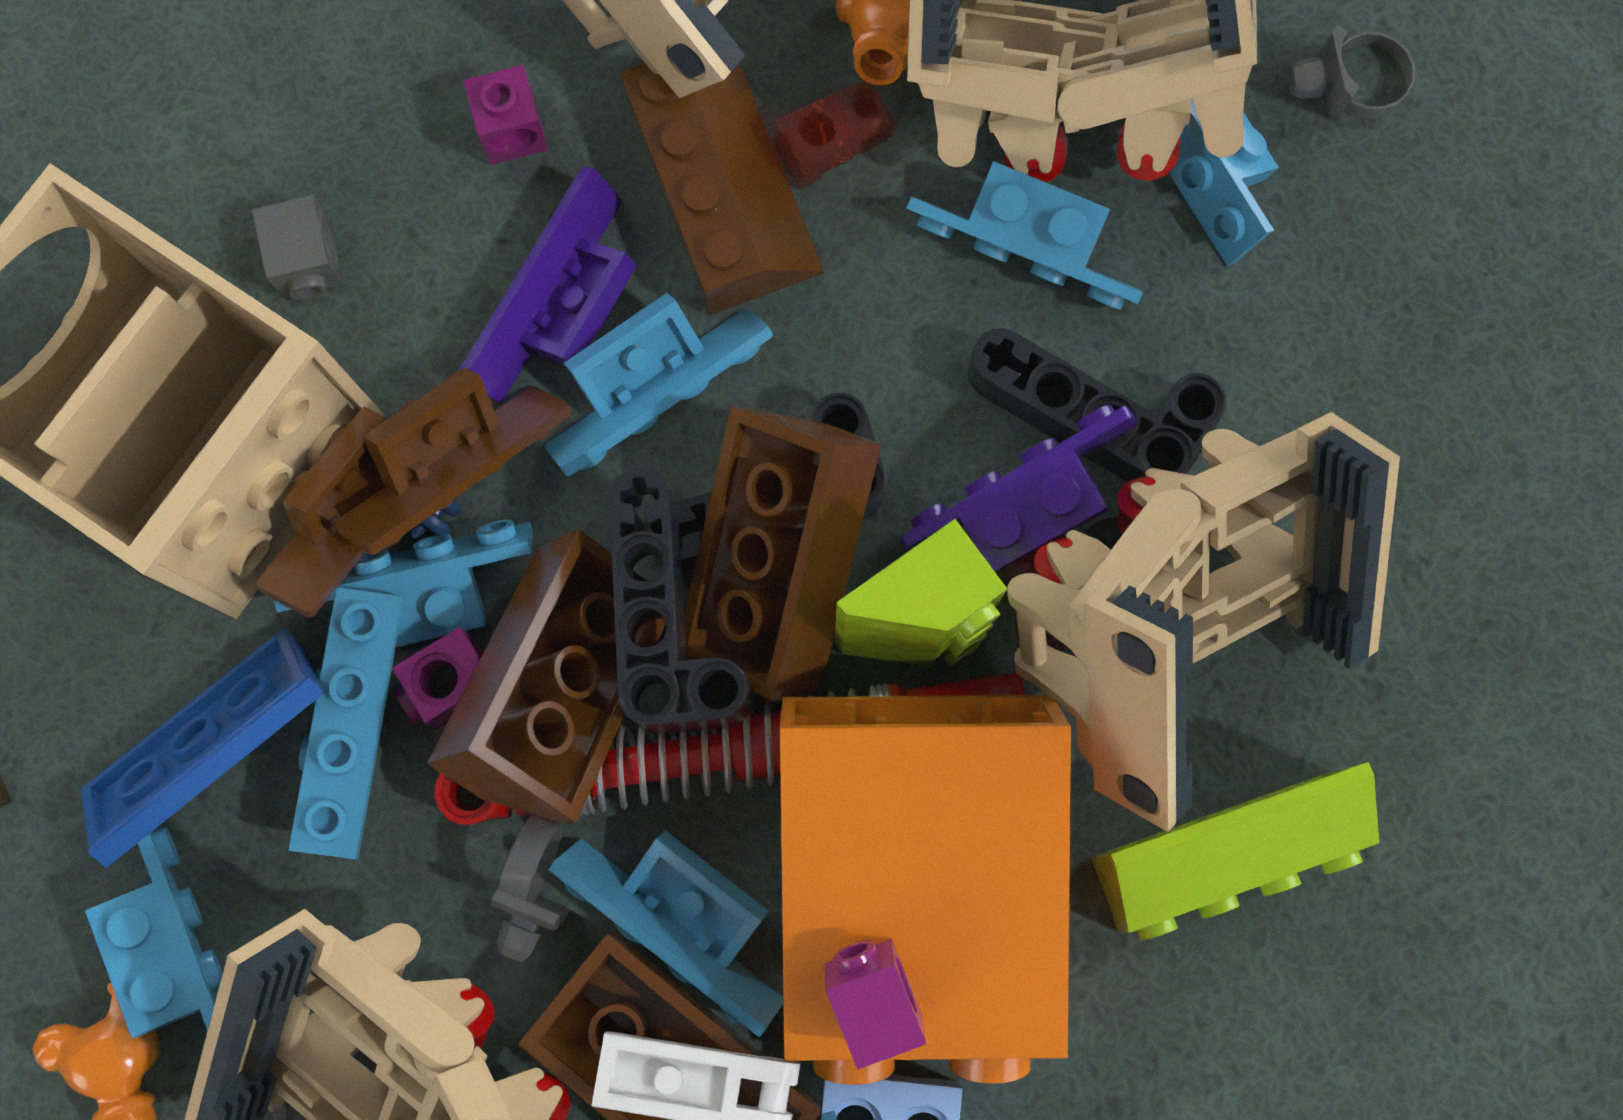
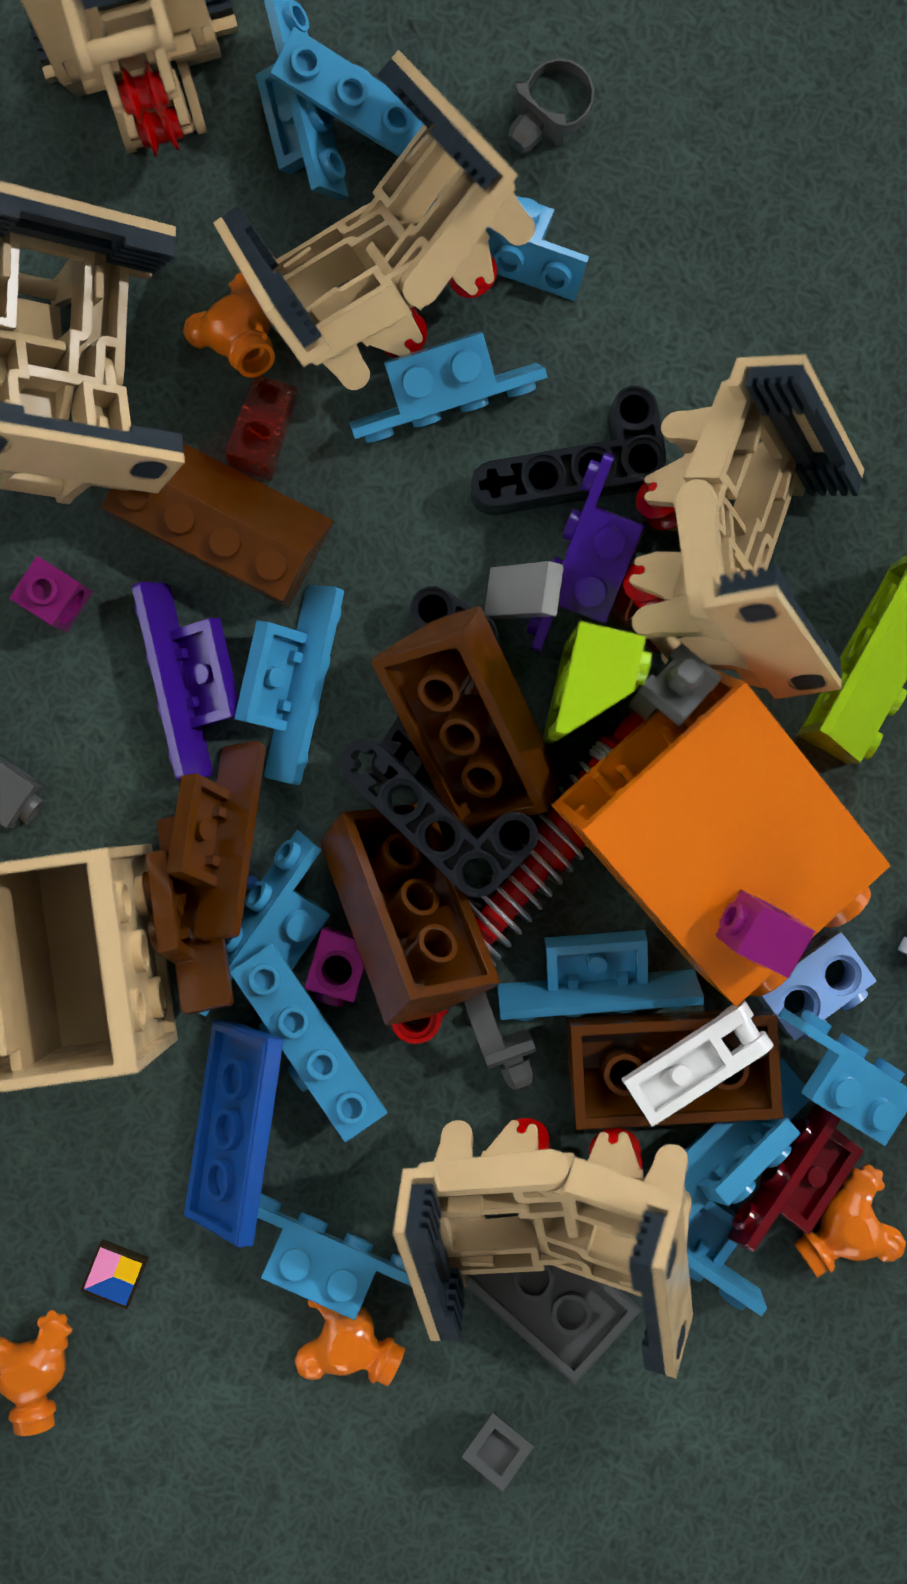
camera: 50 degrees left, 10 degrees up
(941, 478) = (524, 590): none -> light grey tile
(999, 677) = (676, 687): none -> dark grey piece

